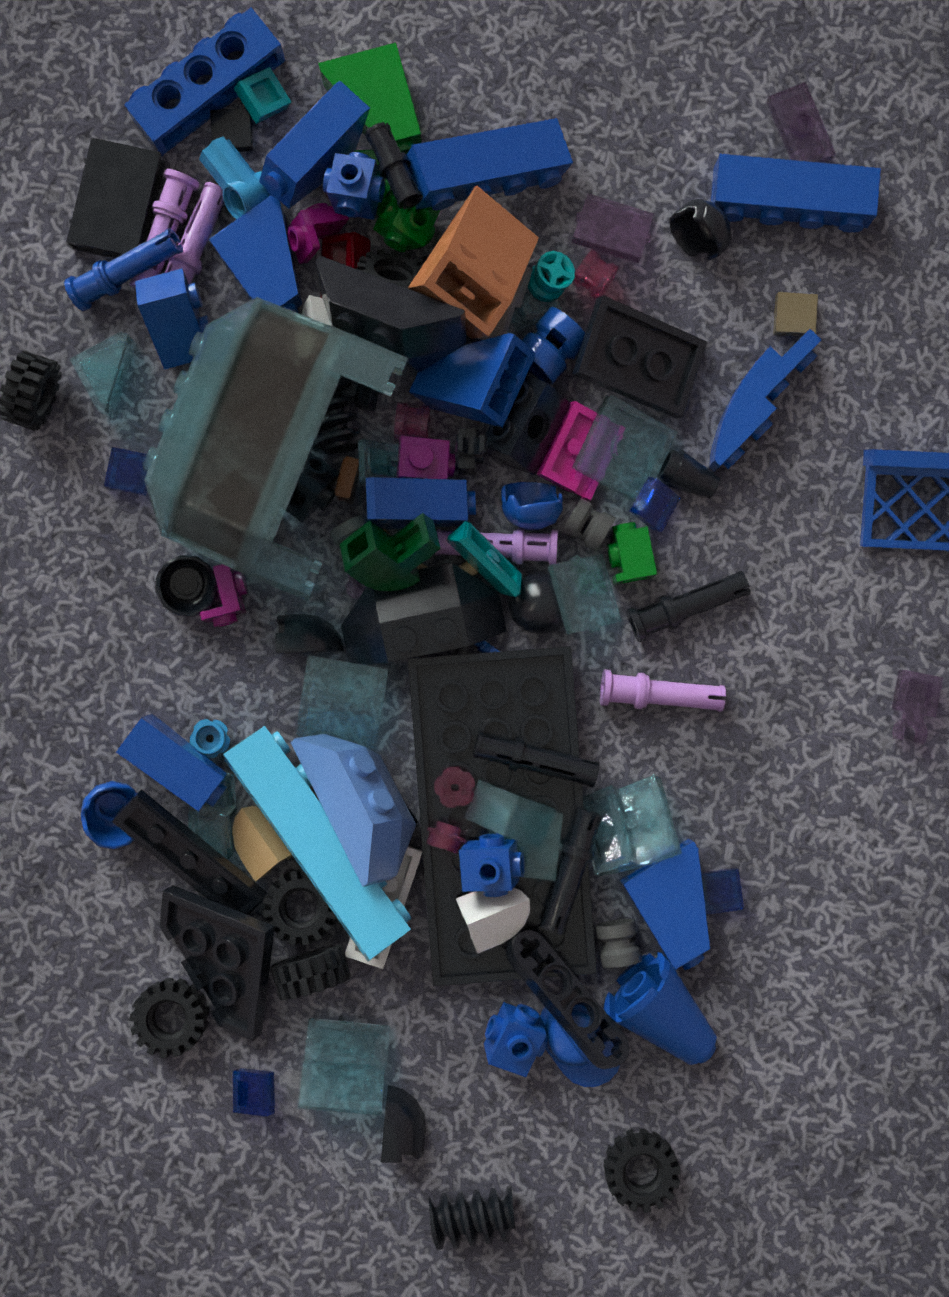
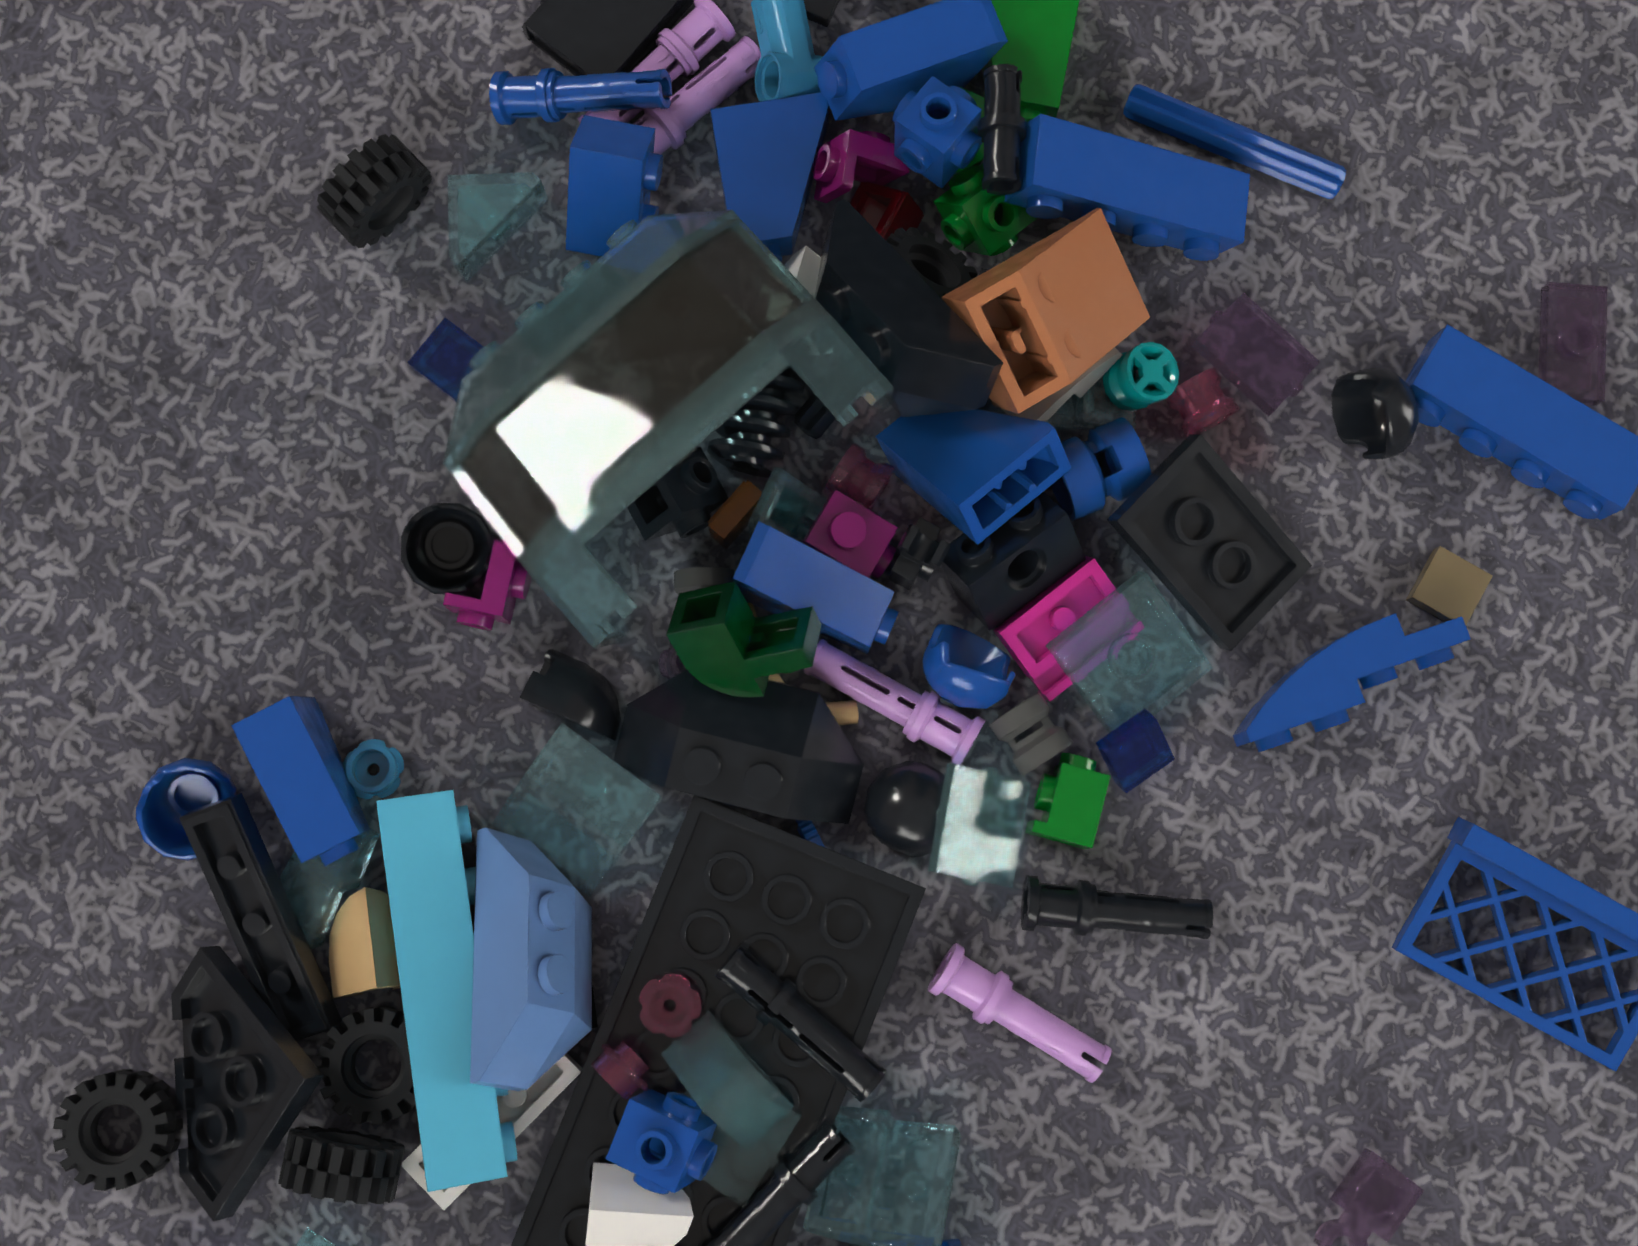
camera: 20 degrees right, 5 degrees down
(486, 559) = (868, 712): teal slope -> none
(537, 101) = (1234, 141): none -> blue axle
(687, 474) = (1199, 732): black cone -> none

